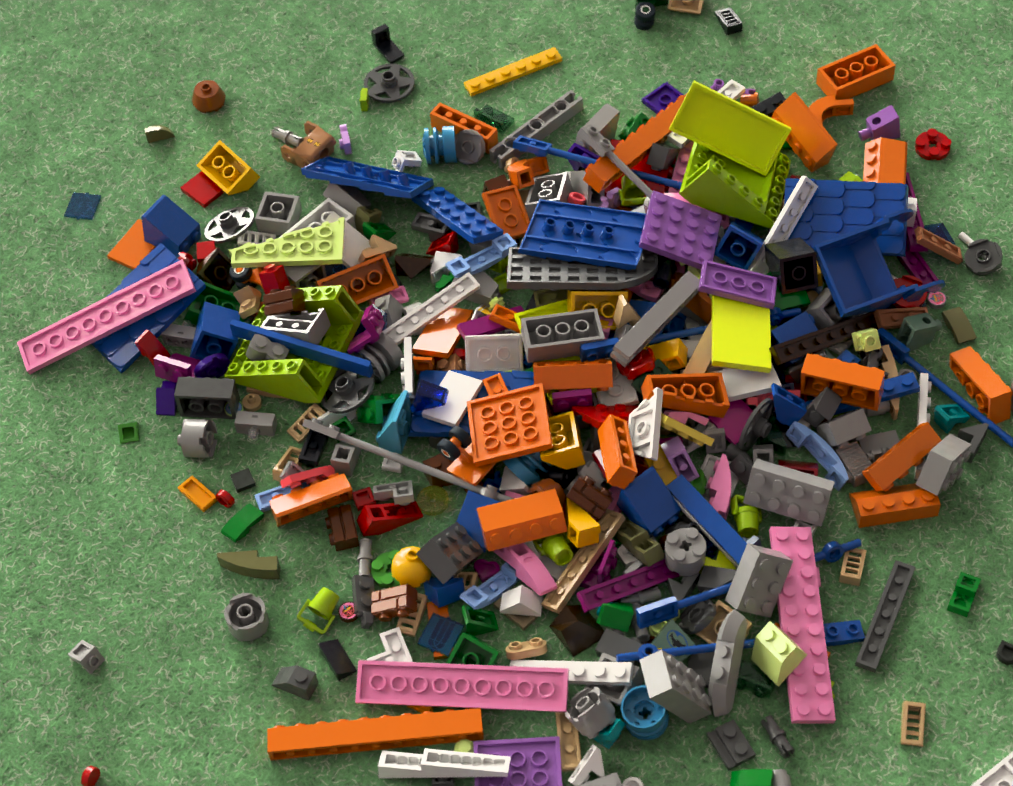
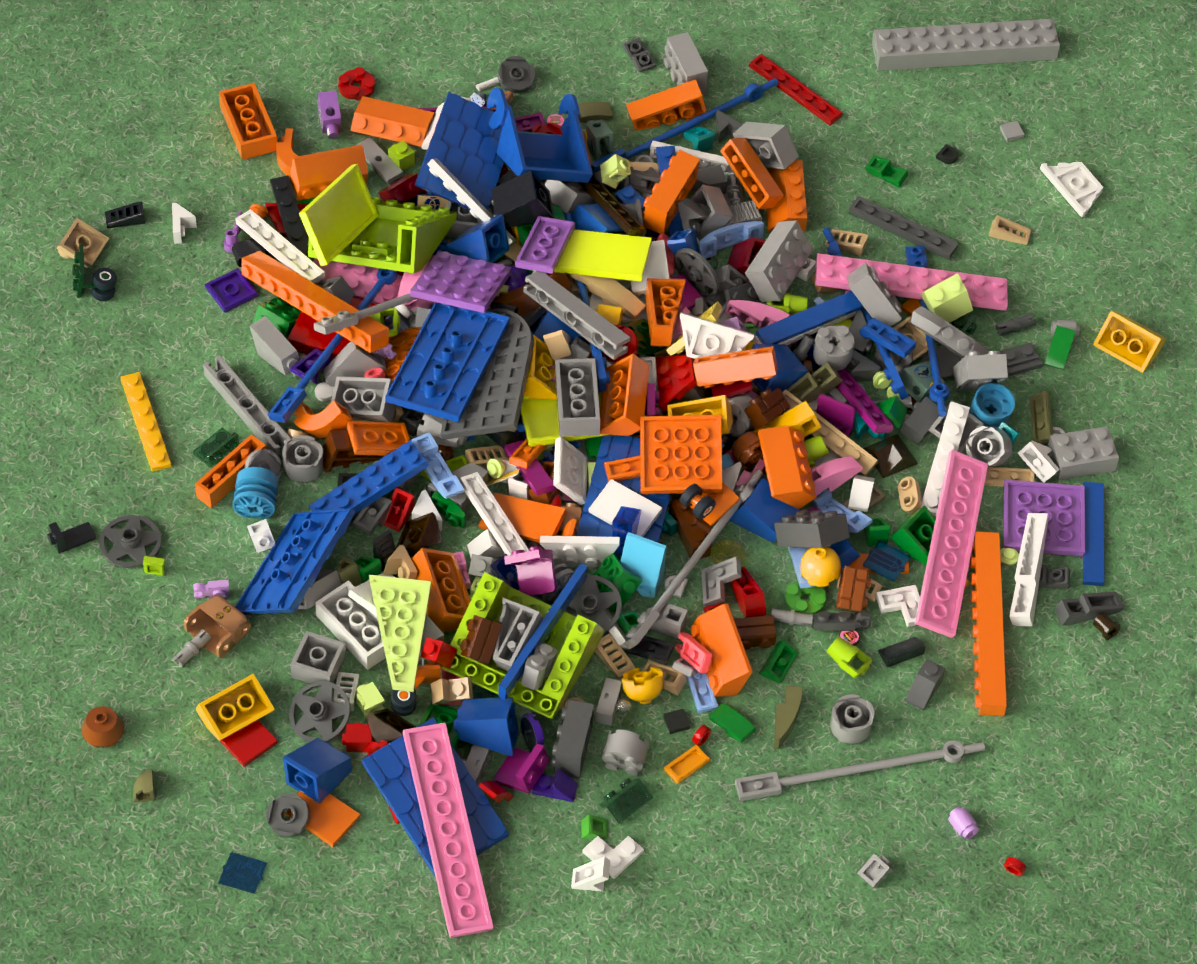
camera: 90 degrees left, 0 degrees up
(76, 434) = (591, 875): none -> white slope
(97, 449) = (619, 857): none -> white plate
(129, 221) = (282, 805): none -> dark grey plate
(138, 727) = (963, 822): none -> lavender brick
(155, 450) = (627, 799): none -> clear green bracket
(177, 560) = (769, 783): none -> light grey bar
(272, 443) = (643, 685): none -> yellow cylinder
(315, 556) = (779, 662): none -> green slope
(394, 234) = (383, 548): none -> black slope
(482, 168) = (303, 459): none -> light grey brick
(509, 293) = (471, 454): none -> tan slope
(650, 769) = (1041, 417): none -> olive tile
(704, 597) = (888, 337): none -> blue plate
(730, 51) = (181, 220): none -> white slope
(852, 163) = (380, 161): none -> light grey tile
(891, 427) = (711, 176): none -> dark grey slope

